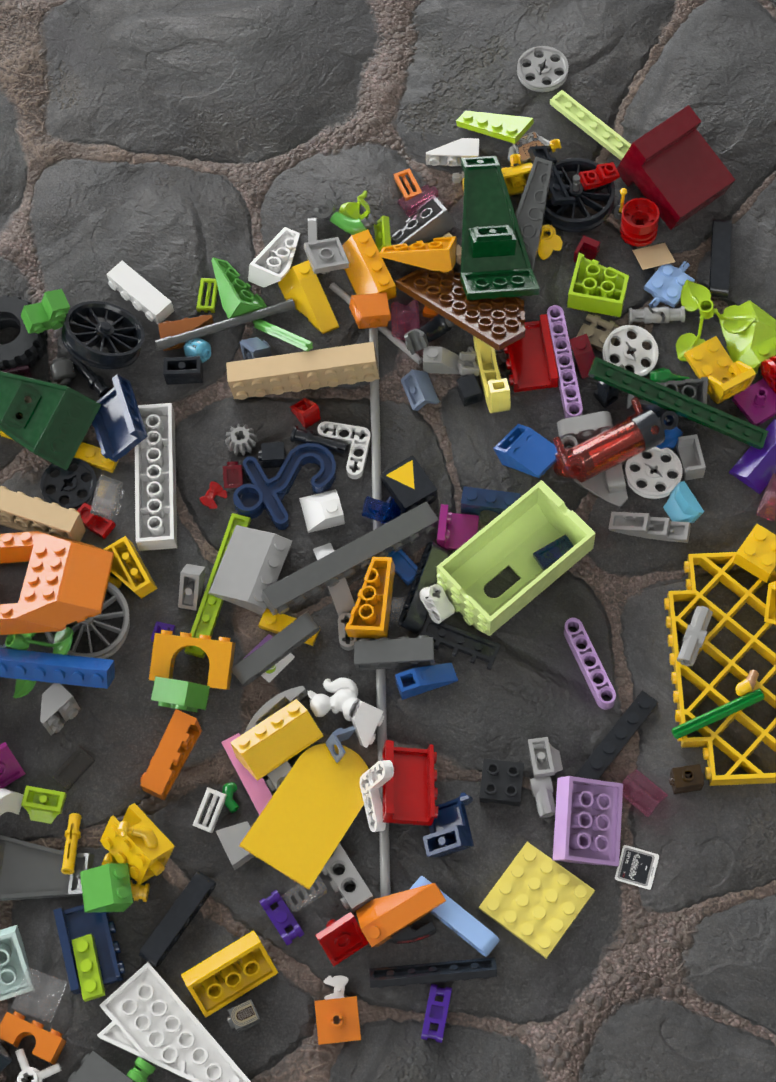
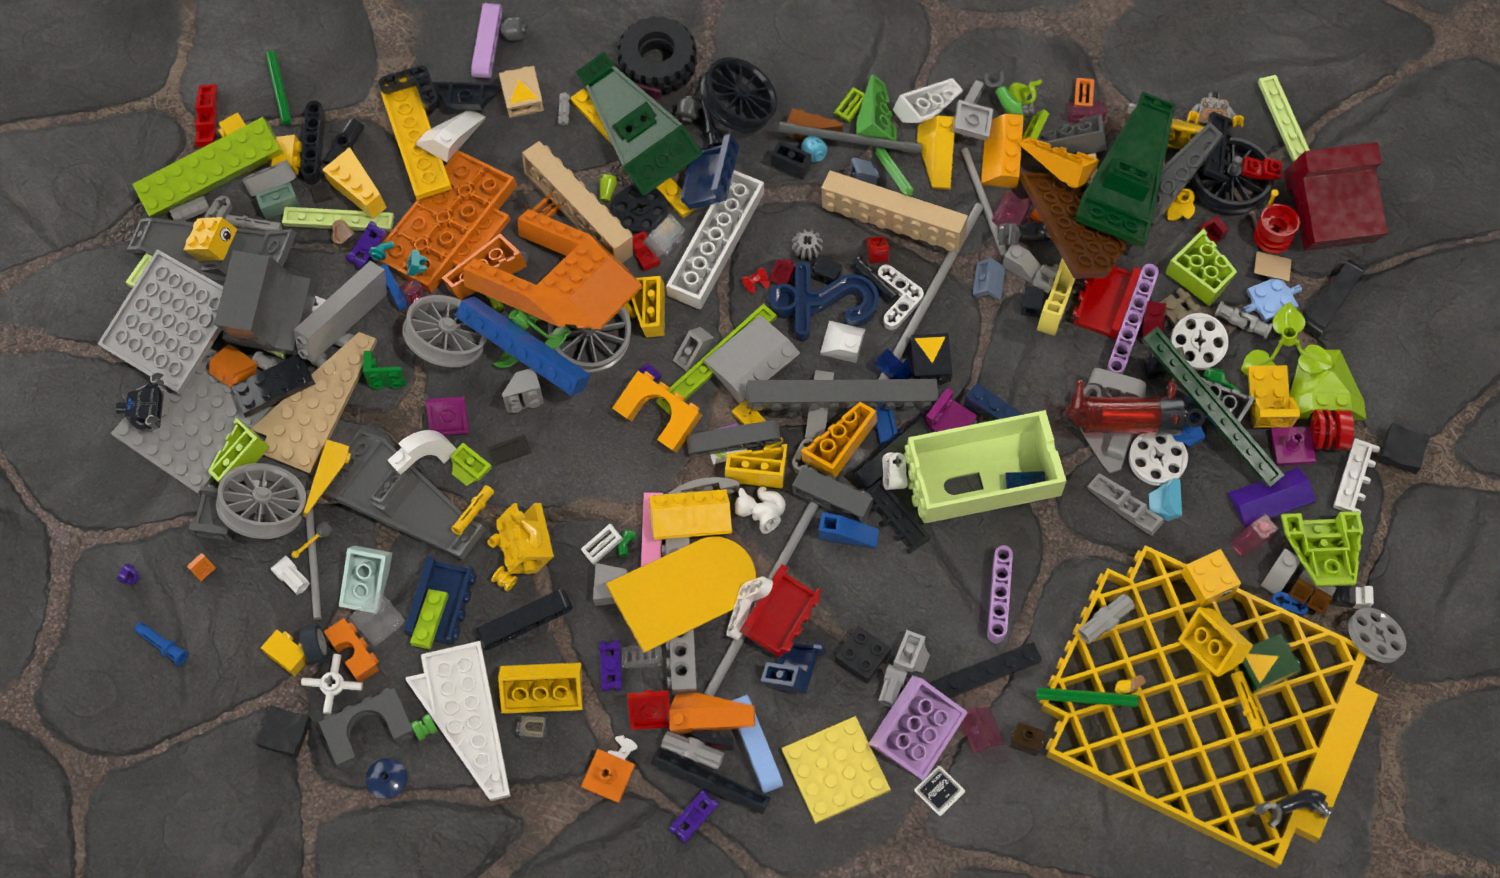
camera: 25 degrees right, 0 degrees up
(27, 479) = (607, 187): none -> lime cone
(47, 314) = (699, 53): bright green brick -> none
(106, 888) = (479, 561): bright green slope -> none
(140, 292) = (793, 74): white brick -> none
(171, 754) = (596, 480): orange wedge -> none
(180, 694) = (630, 433): bright green brick -> none
(312, 664) = (758, 467): none -> yellow wedge
(335, 738) = (740, 540): sand blue bracket -> none
(365, 720) = (774, 539): white slope -> none
(370, 310) = (985, 188): orange torso -> none
(400, 953) = (692, 750): none -> light grey piece
(453, 152) = (1136, 83): white slope -> none
(496, 125) = (1194, 78): wing -> none
(526, 451) = (1050, 380): blue slope -> none
(547, 73) = (1268, 41): light grey wedge -> none
(691, 457) = (1199, 461): light grey panel -> none

